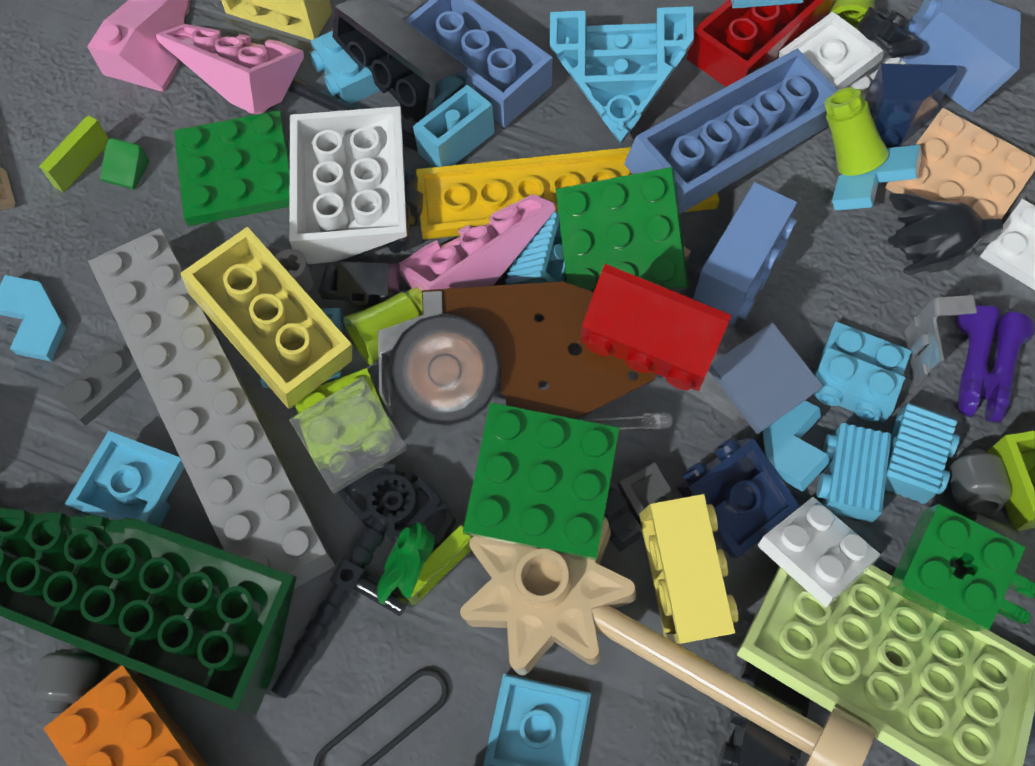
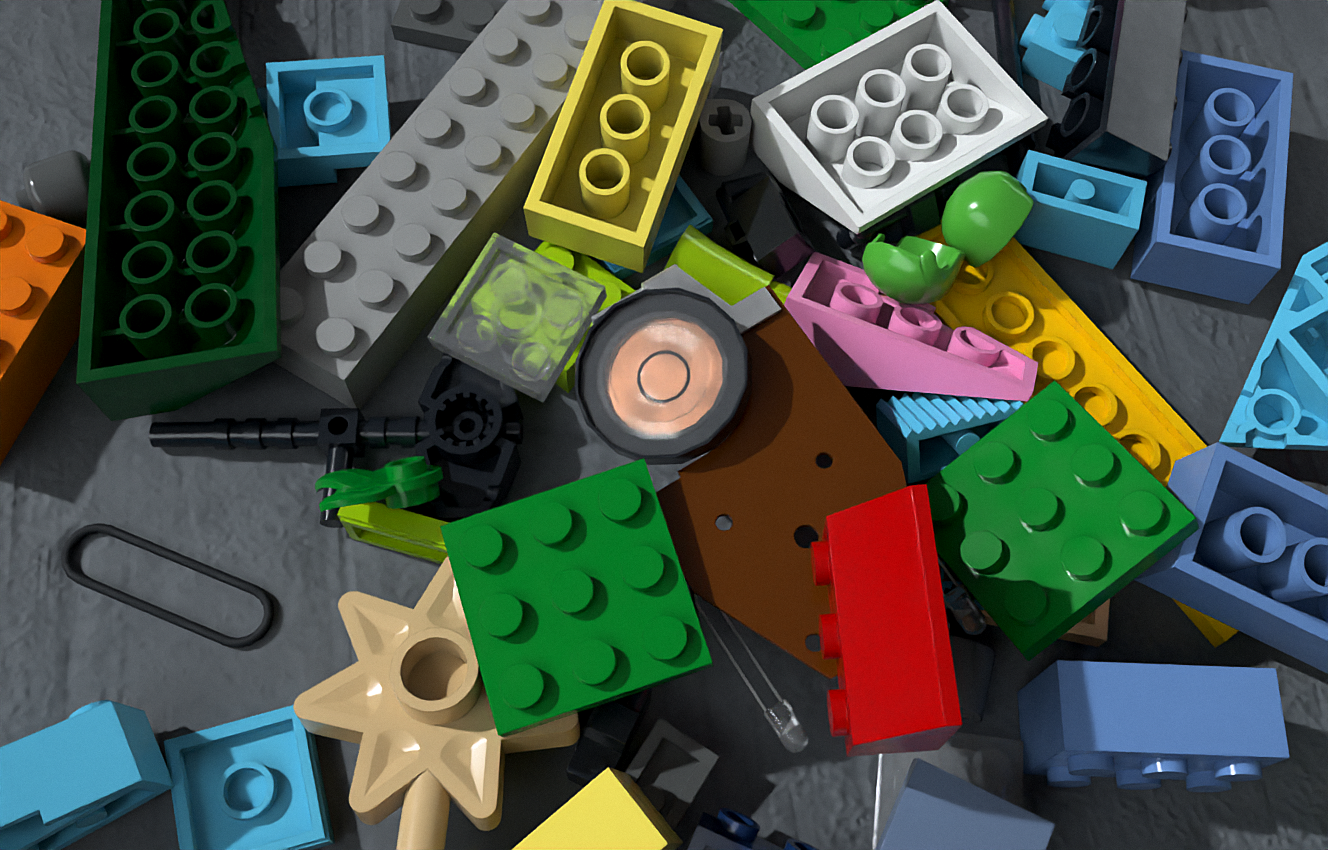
camera: 55 degrees right, 0 degrees up
(439, 168) = (985, 215): none -> bright green hair
(444, 220) = (913, 269): none -> bright green hair

